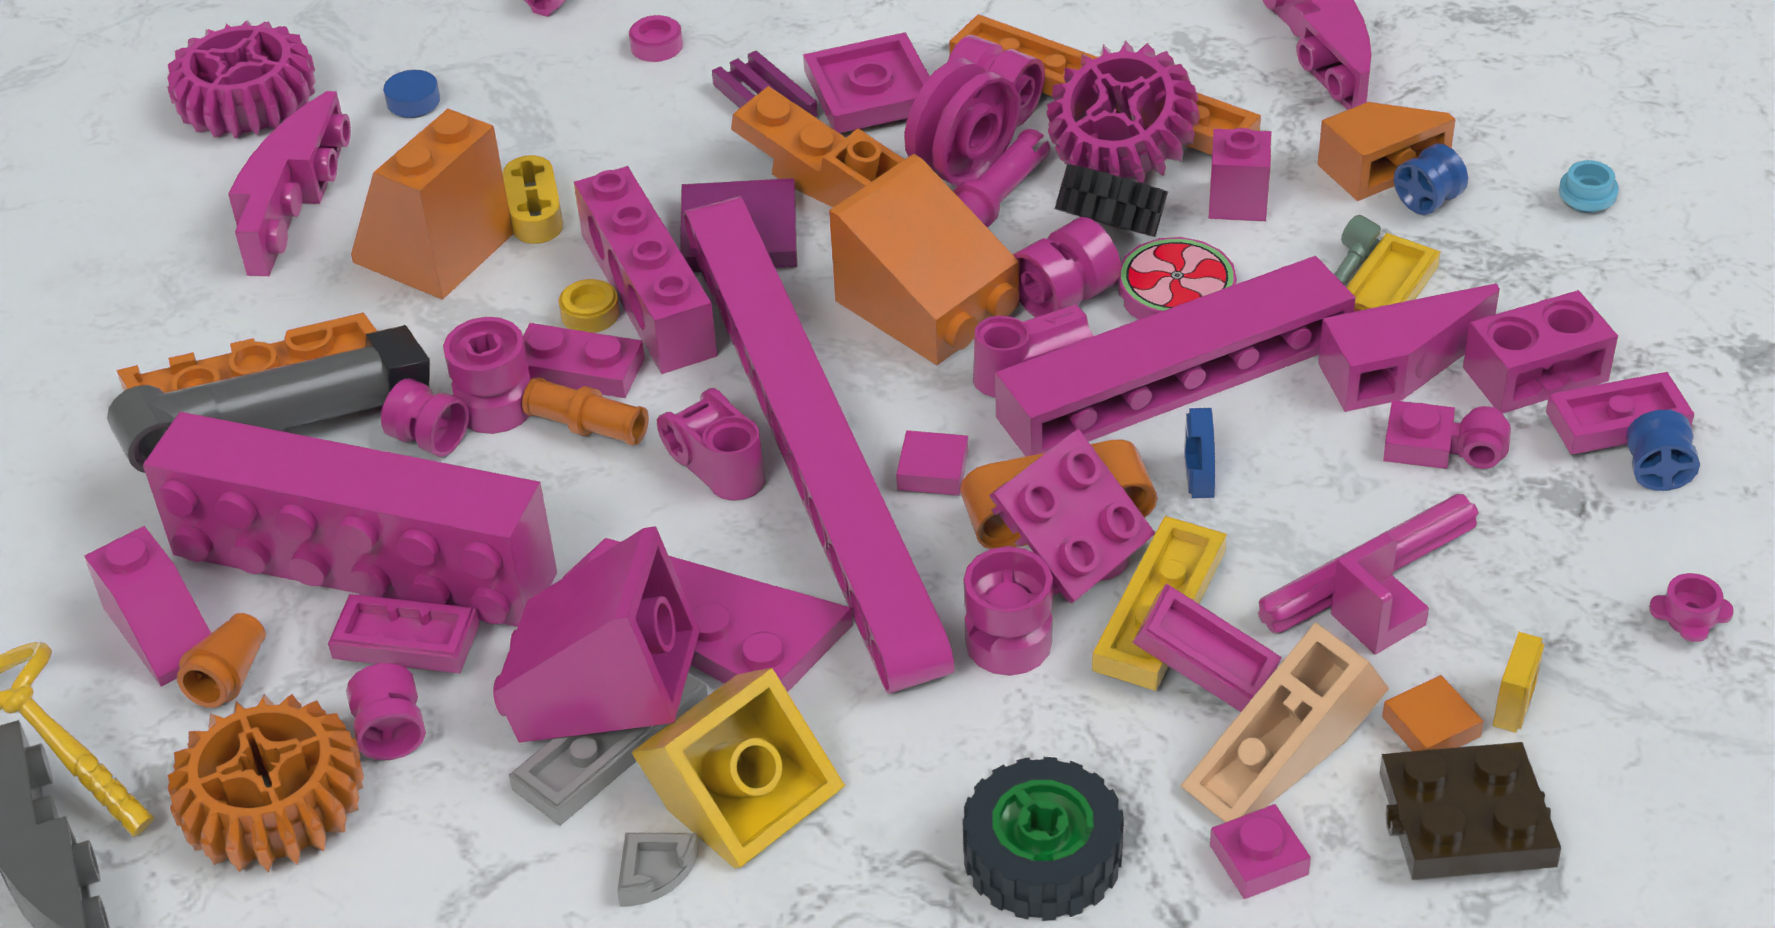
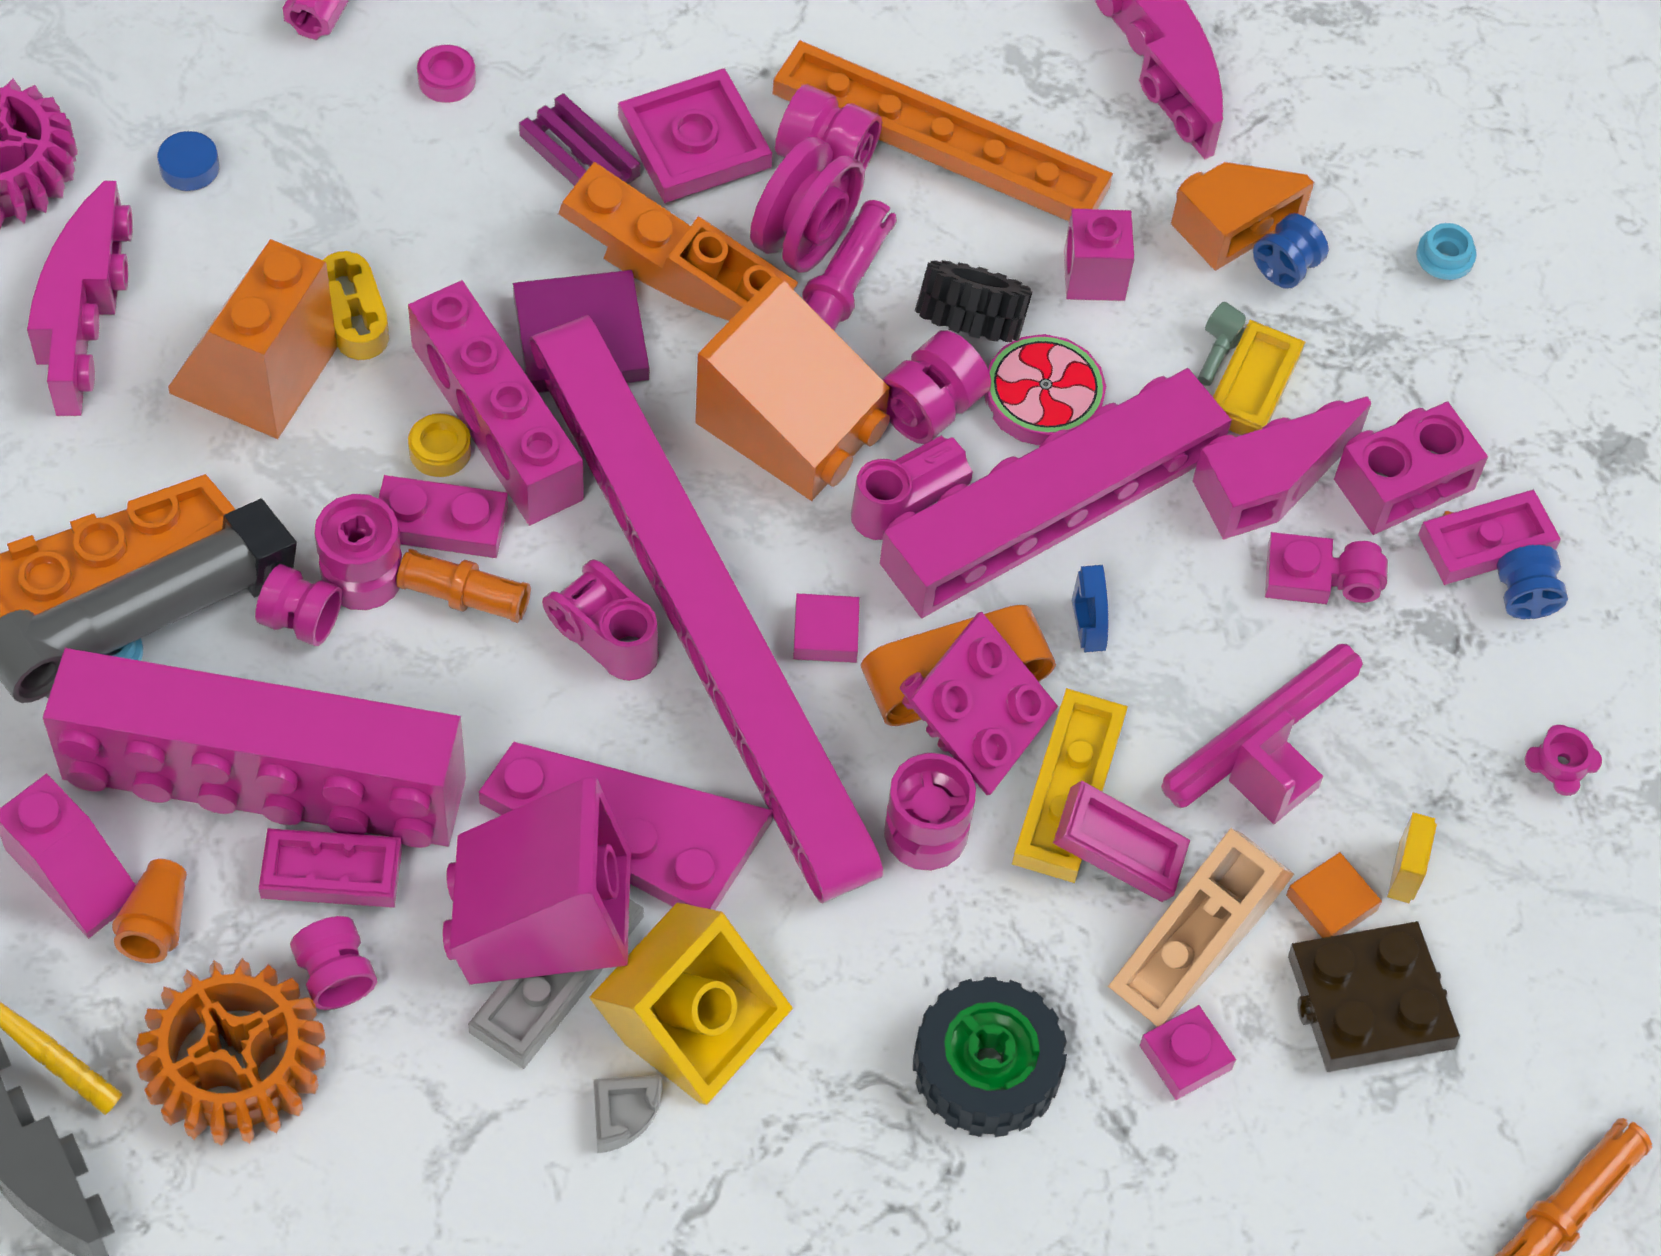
camera: 15 degrees left, 15 degrees up
(1136, 86) = (953, 199): dark pink gear -> none

